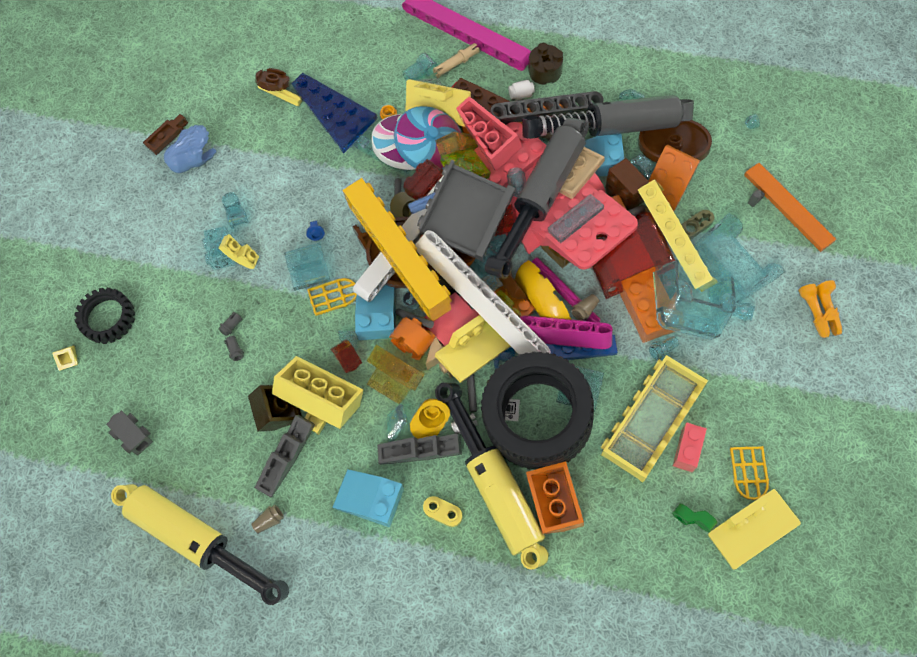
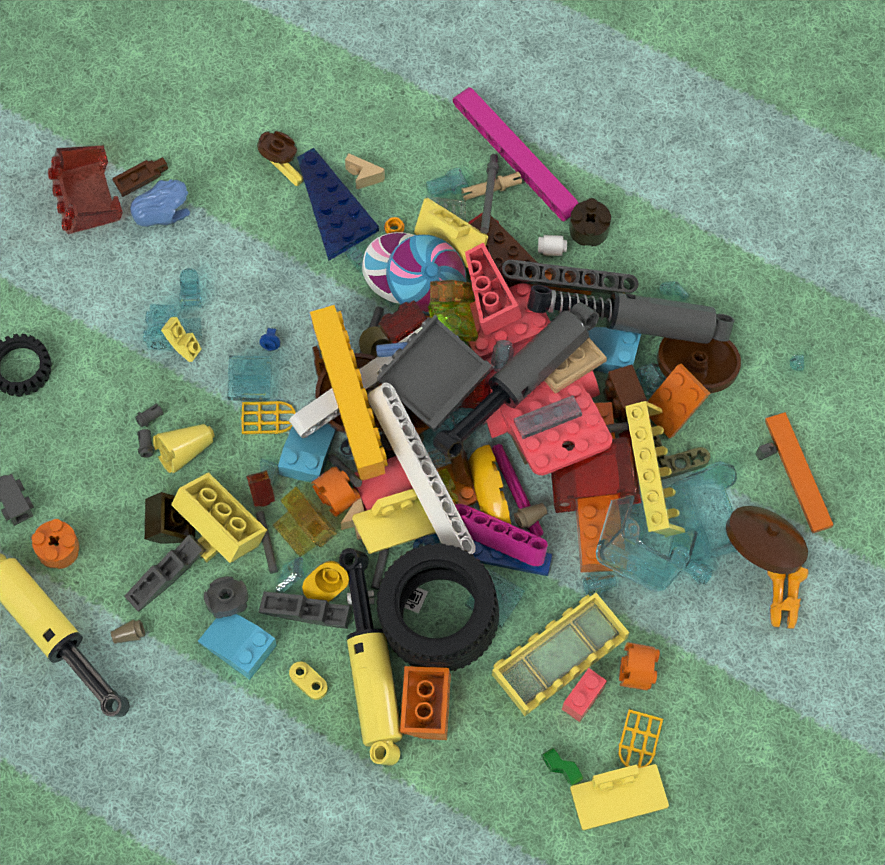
camera: 10 degrees right, 0 degrees up
(119, 156) = (82, 188): none -> clear red windscreen
(171, 453) = (50, 534): none -> orange brick
(246, 238) = (192, 325): none -> clear light blue sticker
(266, 340) = (182, 445): none -> light yellow cone
(351, 77) = (367, 172): none -> tan slope
(352, 467) = (226, 607): none -> dark grey plate
(367, 403) = (267, 544): none -> dark grey bar
(452, 48) = (492, 171): none -> dark grey bar
(727, 407) = (638, 666): none -> orange brick
(792, 266) = (766, 539): none -> reddish brown dish

